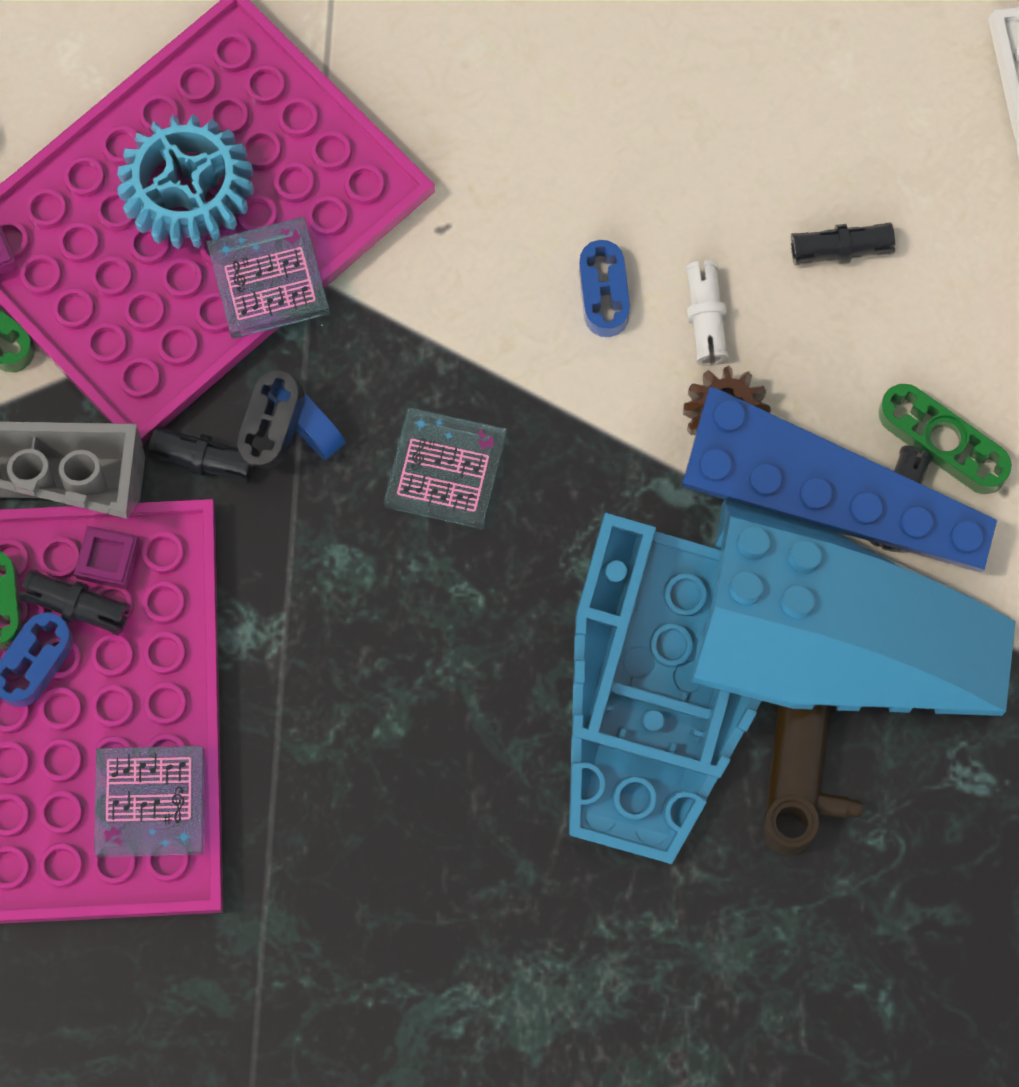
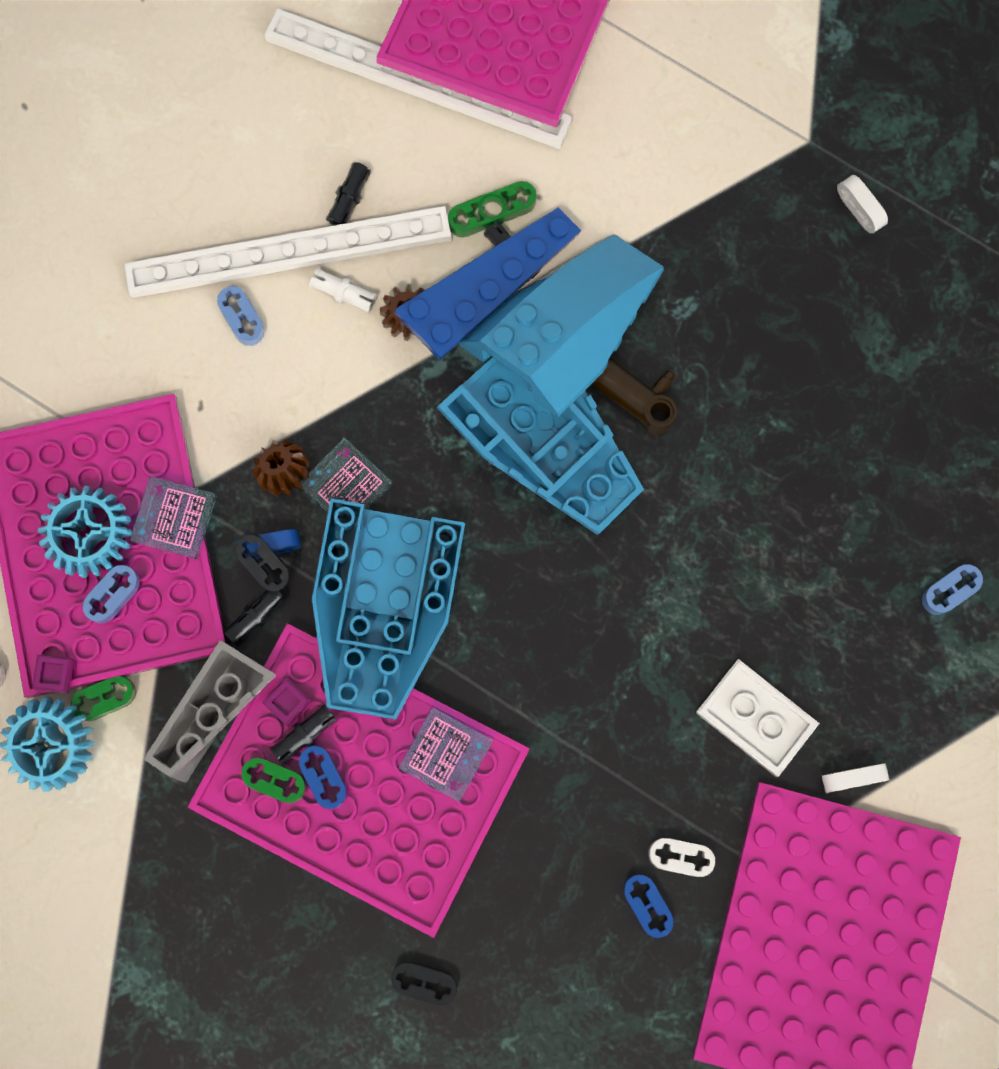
camera: 65 degrees left, 5 degrees up
(127, 250) = (117, 599): none -> medium blue beam
(304, 599) = (381, 603): none -> dark azure wedge
(414, 372) = (281, 468): none -> reddish brown gear
(582, 201) = (234, 319): none -> medium blue beam
(615, 287) = (296, 330): blue beam -> none
(719, 217) = (287, 252): none -> white plate

